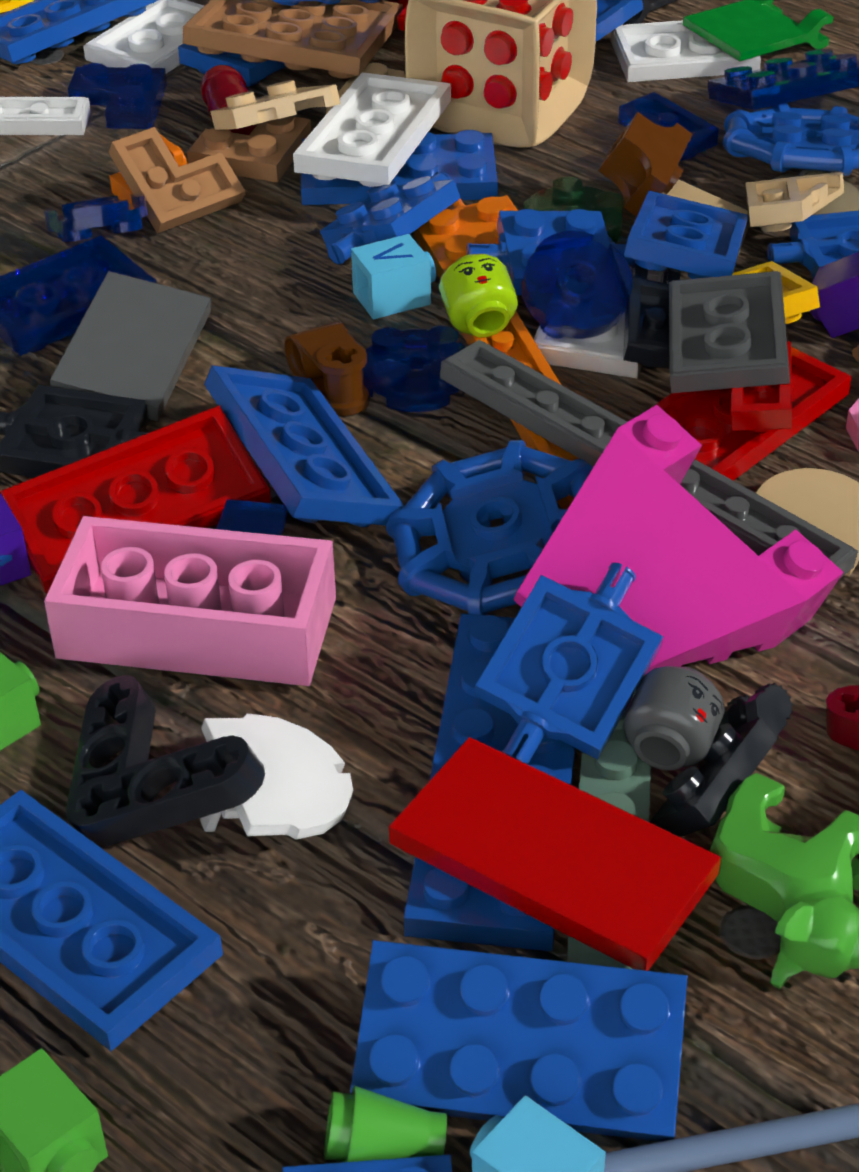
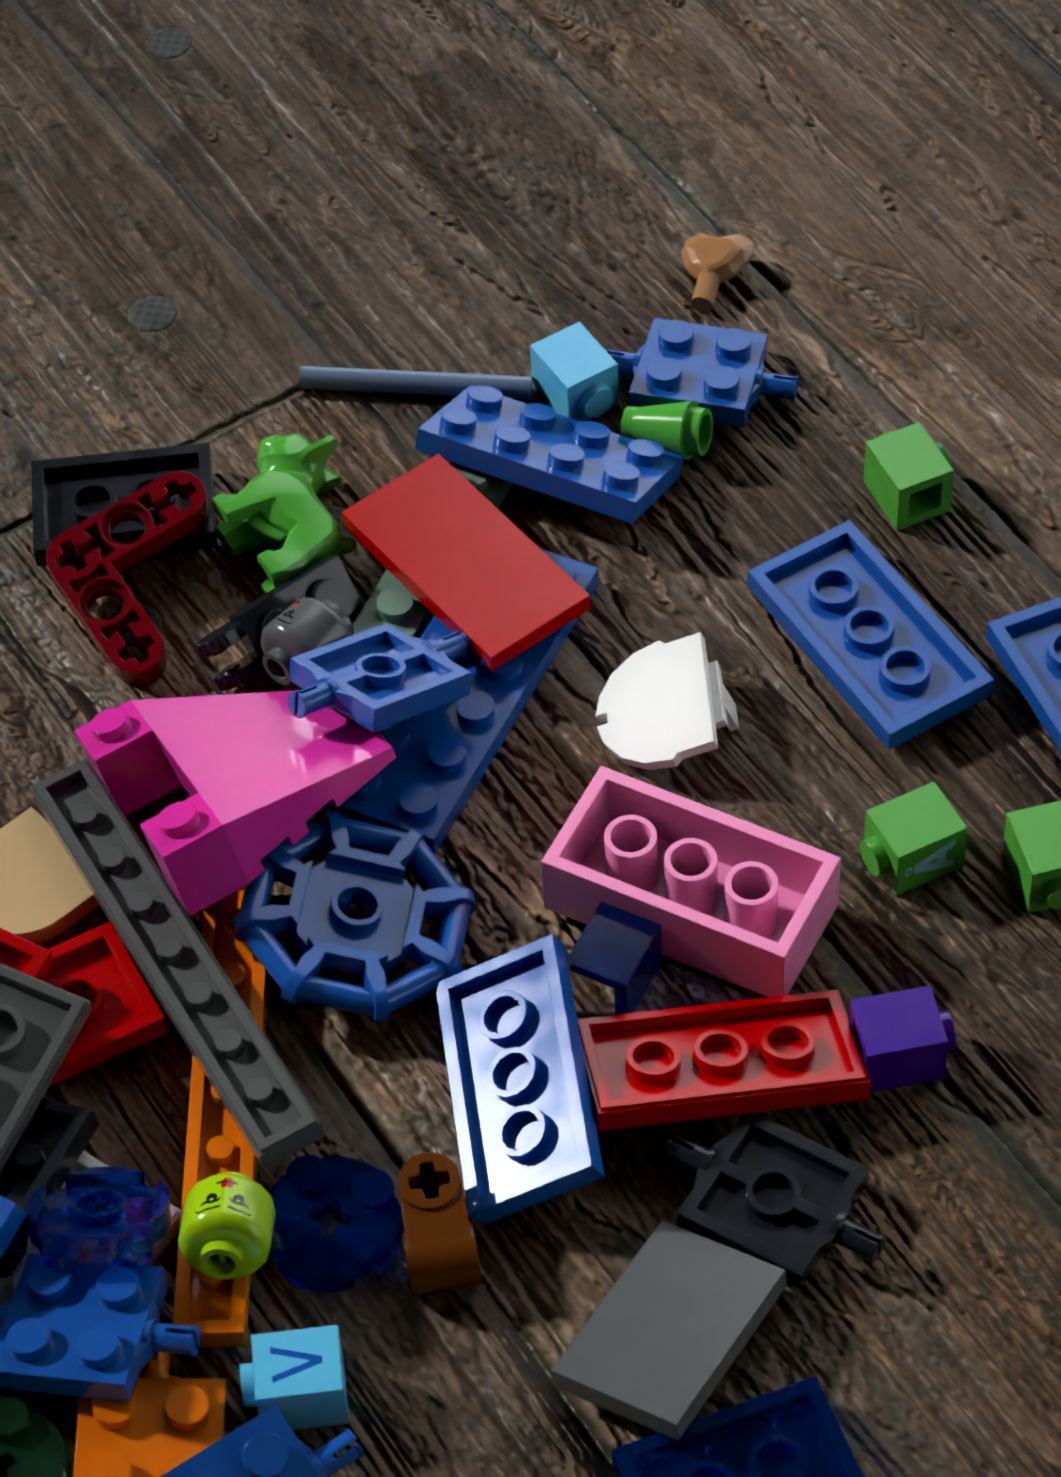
camera: 160 degrees left, 10 degrees up
(116, 799) = (799, 724): black beam -> none

